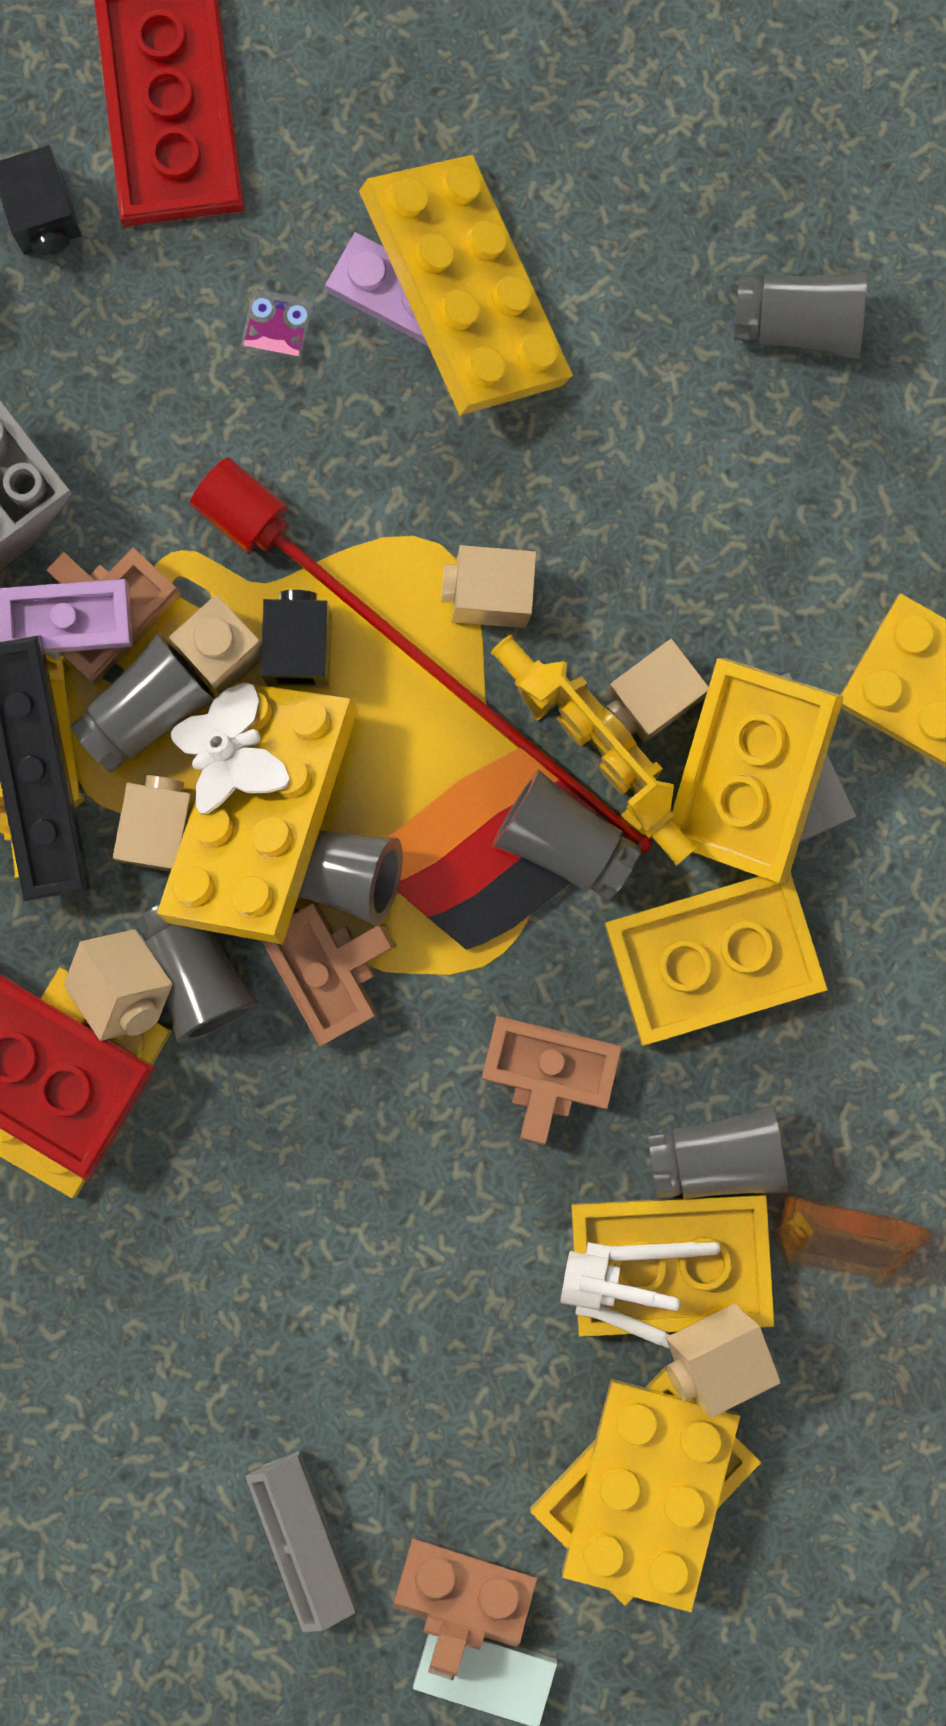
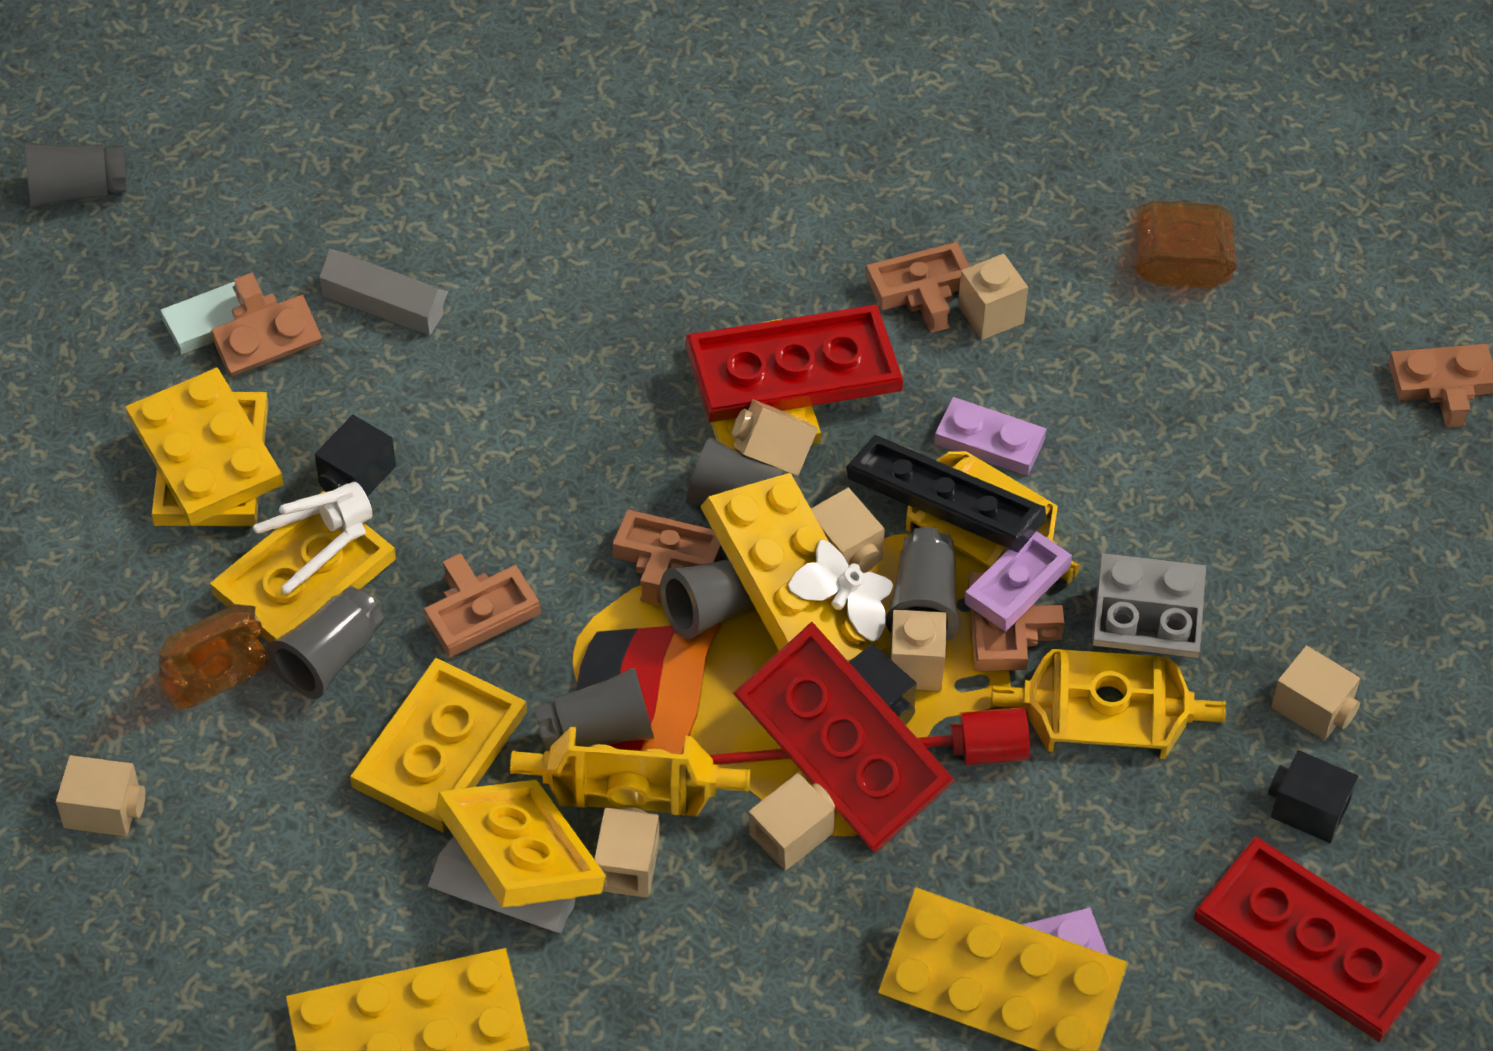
camera: 130 degrees right, 30 degrees down
(146, 479) = (1067, 708): none -> yellow plate
(277, 327) = (1091, 864): tile -> none
(375, 613) = (844, 737): none -> red tile
(520, 1347) = (357, 455): none -> black brick
(721, 1361) = (226, 527): tan brick -> none

